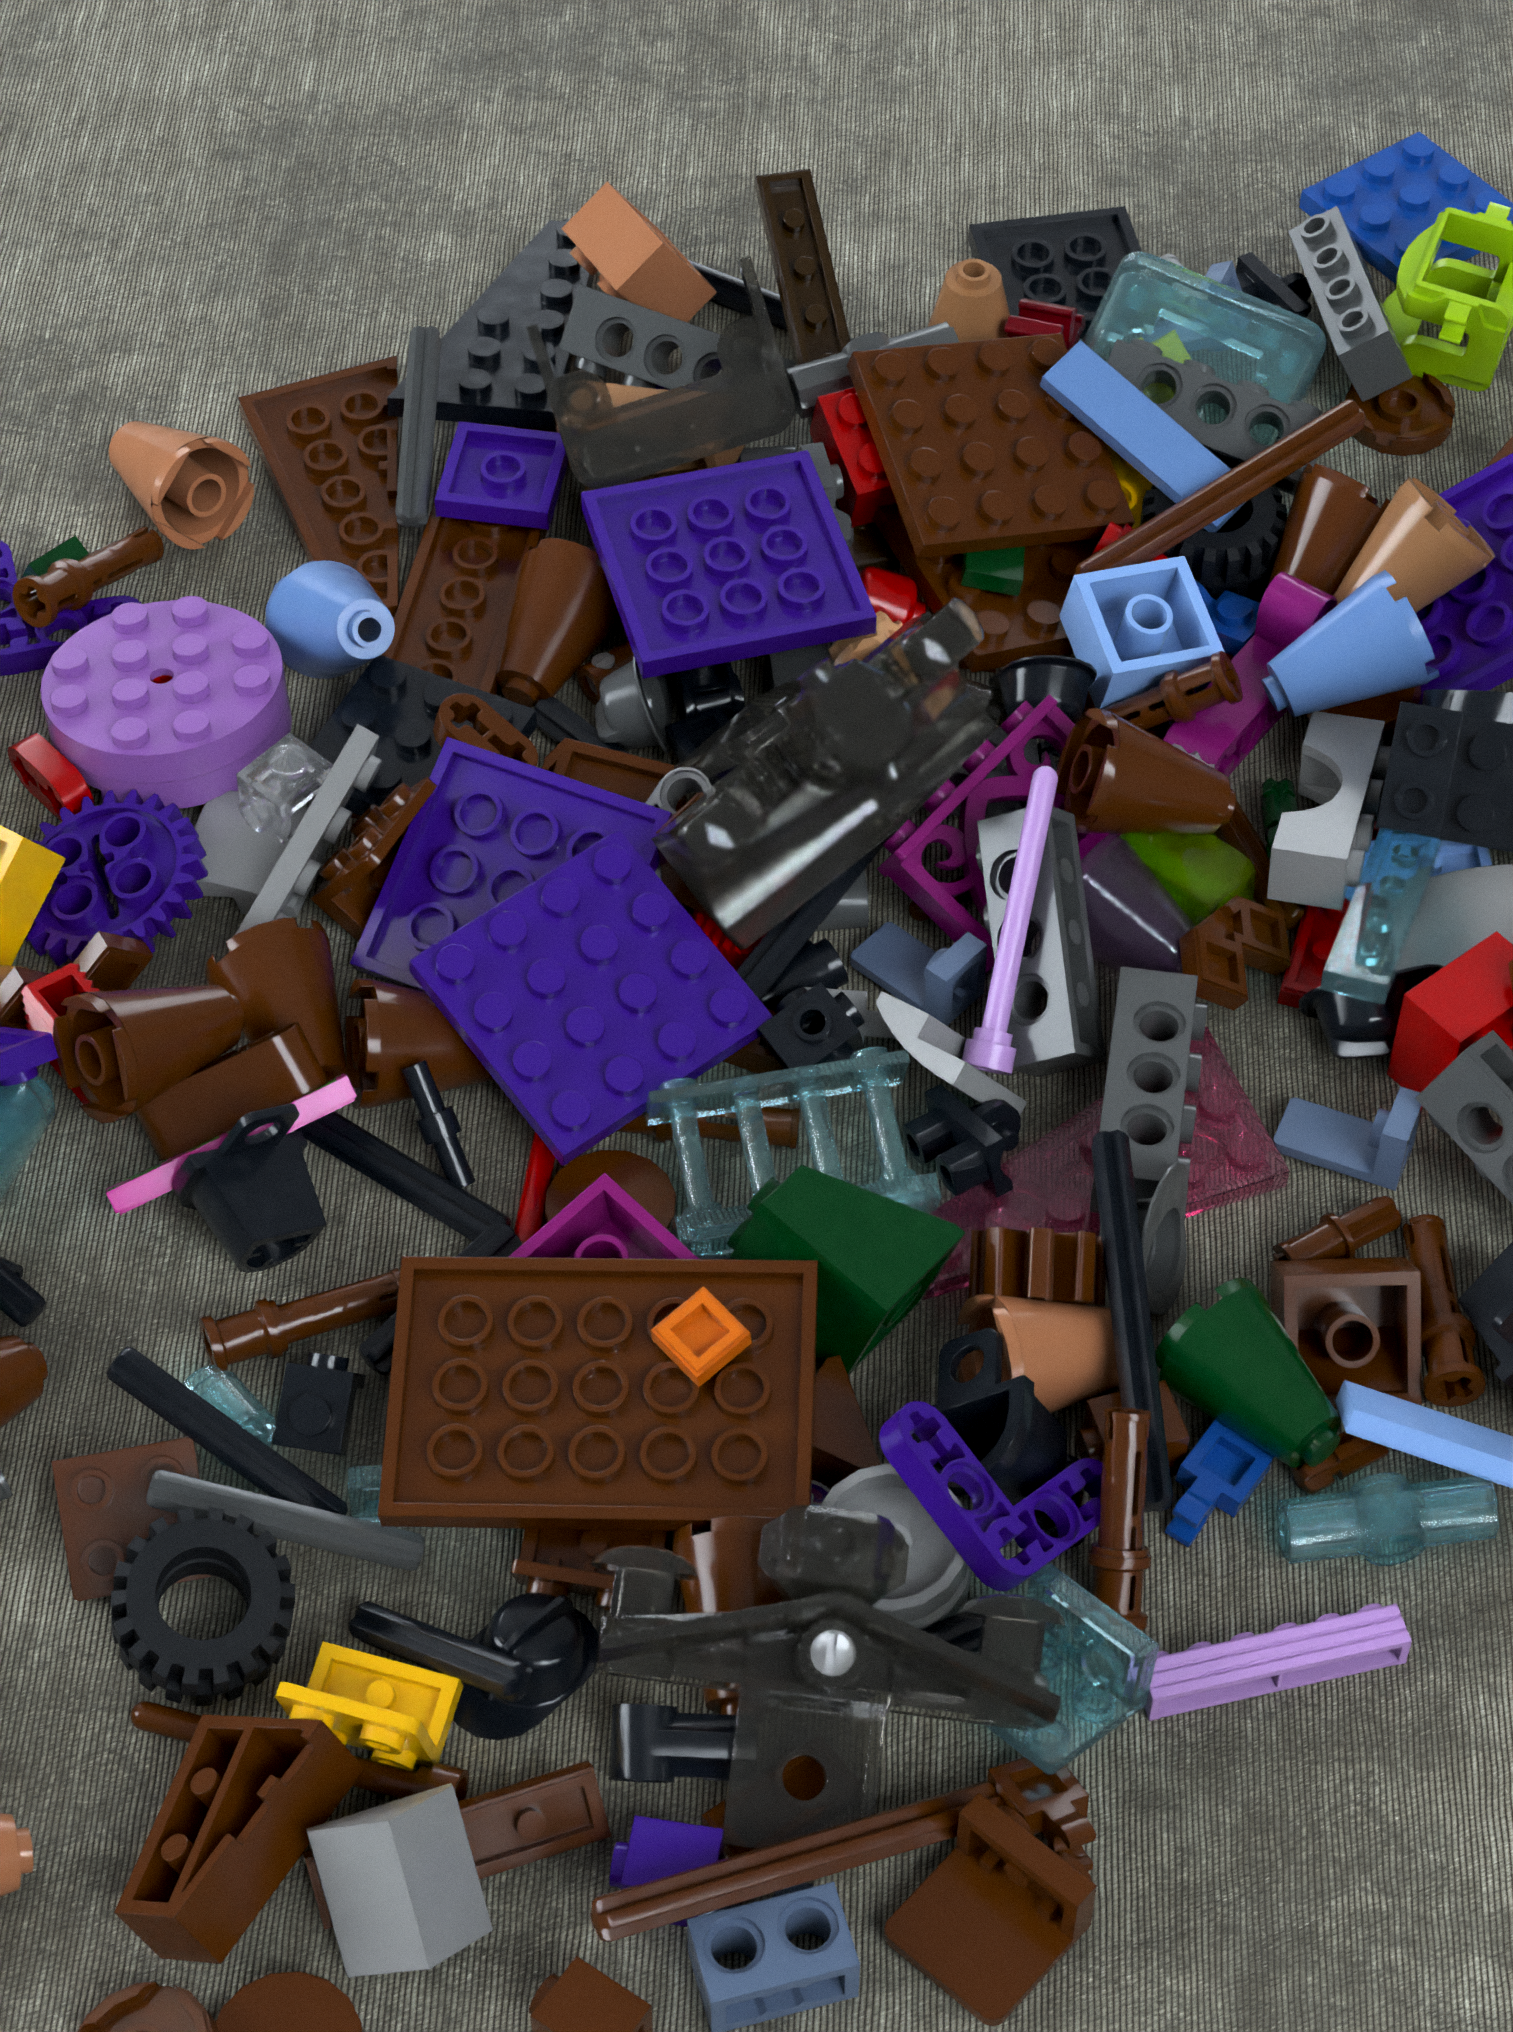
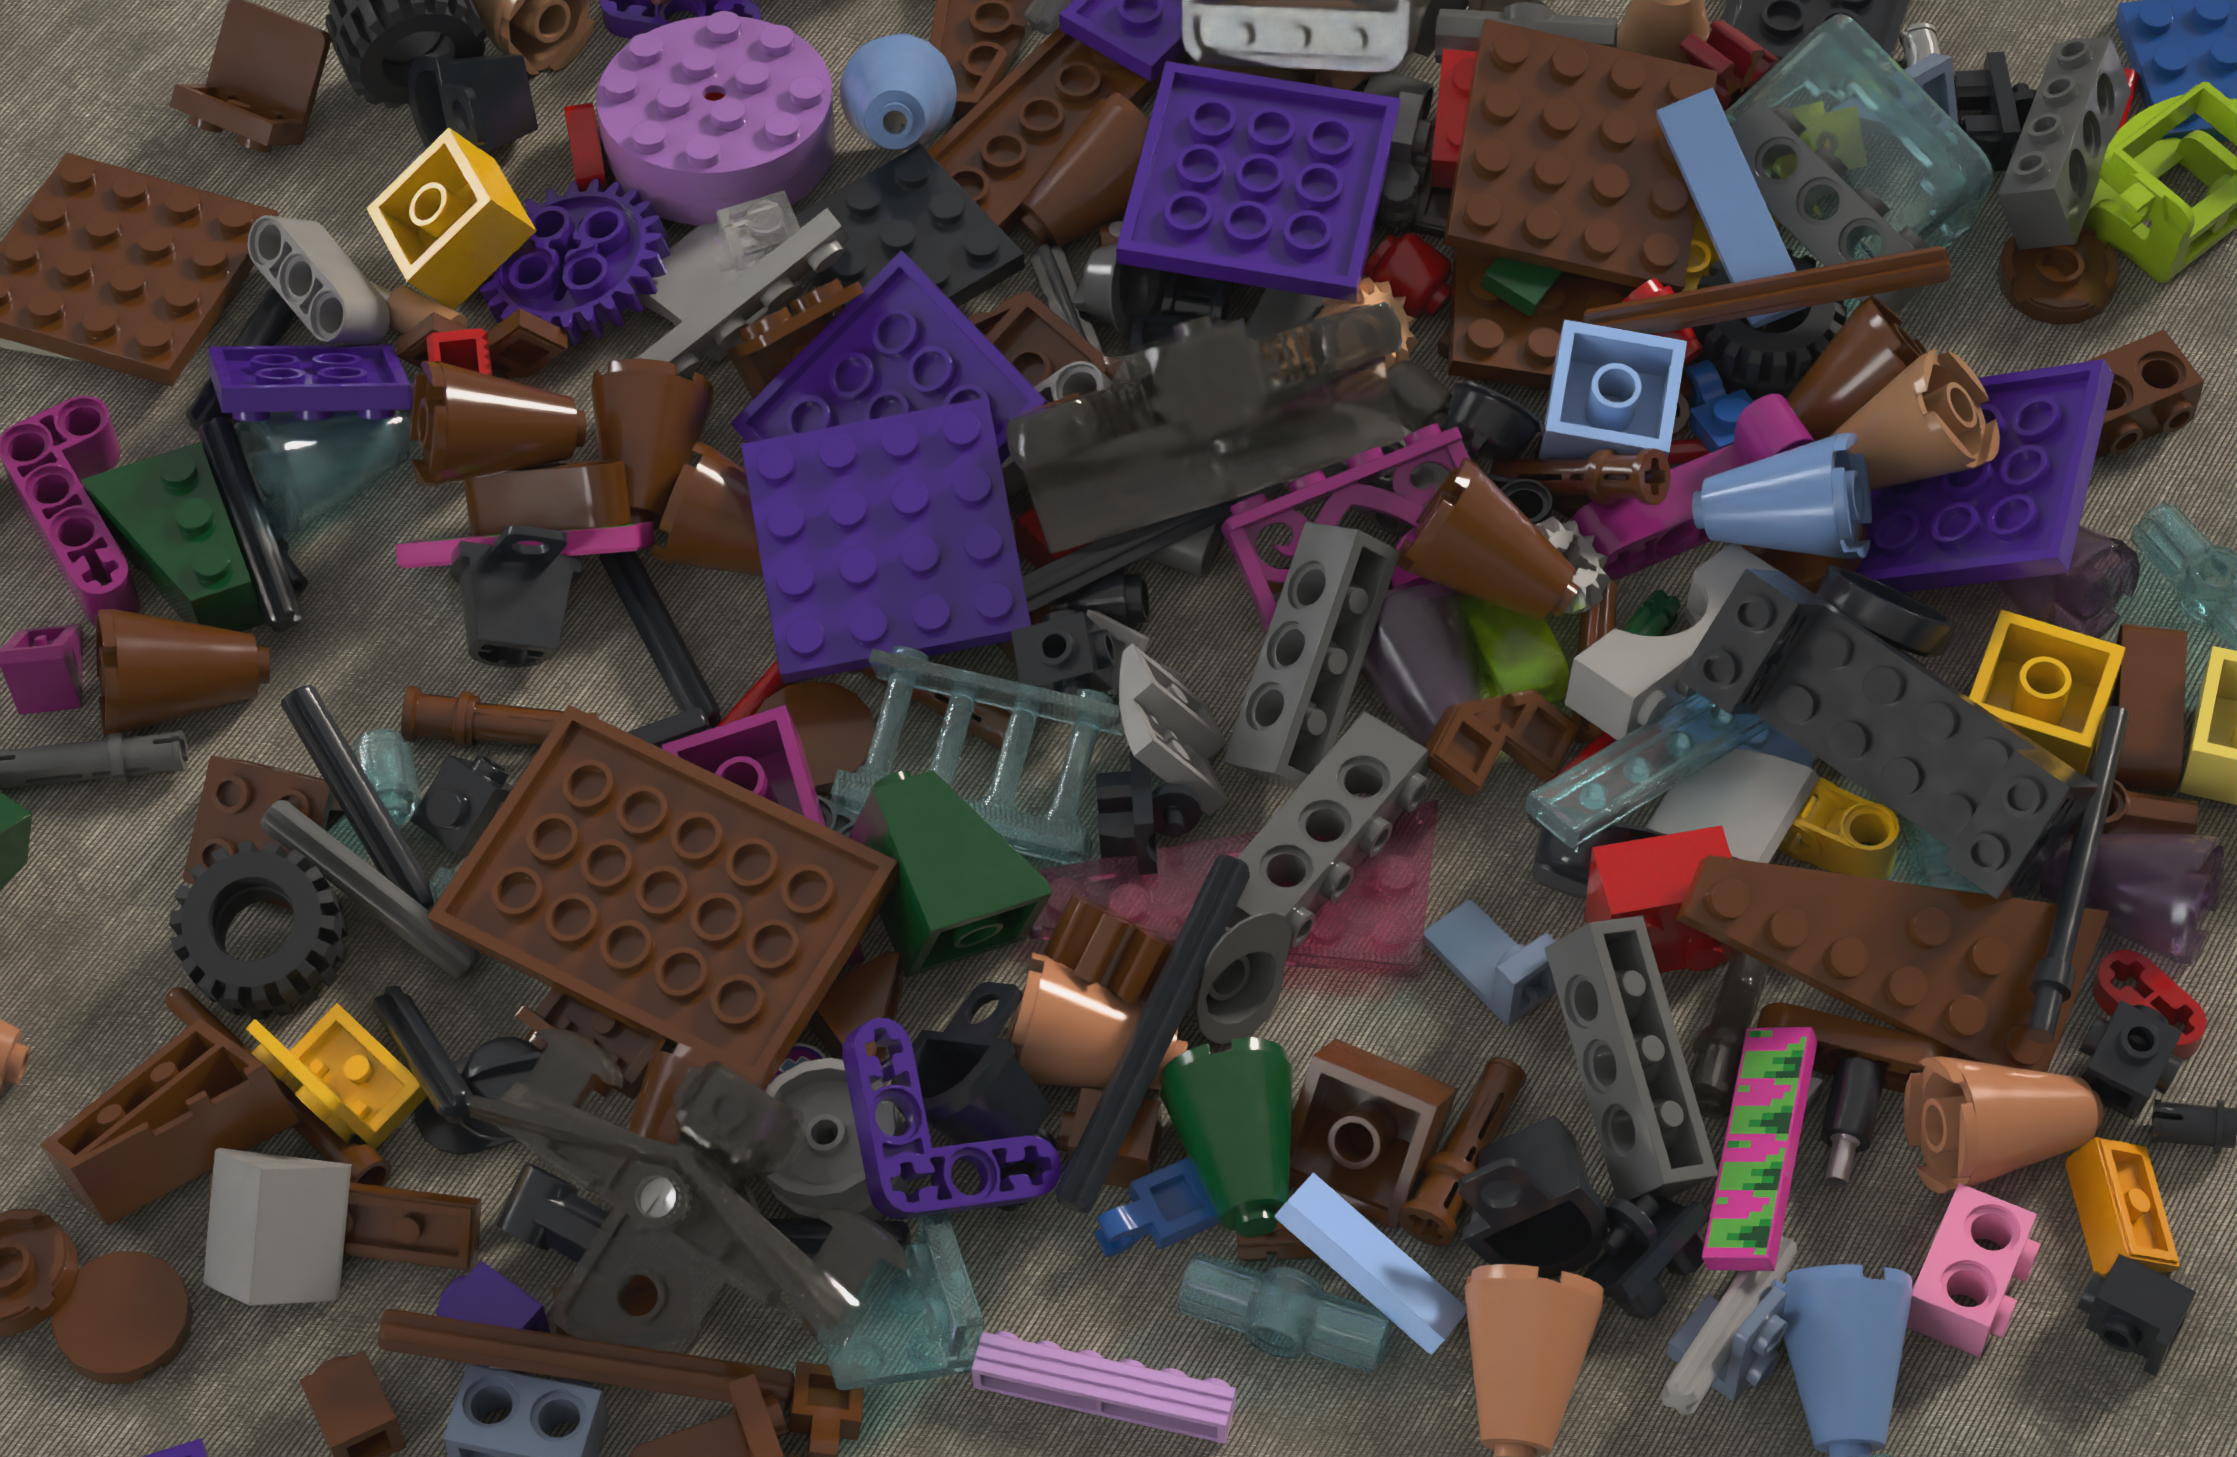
camera: 30 degrees right, 5 degrees up
(438, 1124) = (703, 601): black bar -> none
(489, 728) = (959, 261): reddish brown beam -> none
(701, 1336) = (760, 883): orange tile -> none
(932, 981) = (1213, 640): sand blue bracket -> none
(991, 1044) = (1213, 733): lavender piece -> none
(1119, 1553) = (1018, 1232): reddish brown pin -> none
(1341, 1235) = (1426, 1045): reddish brown axle -> none

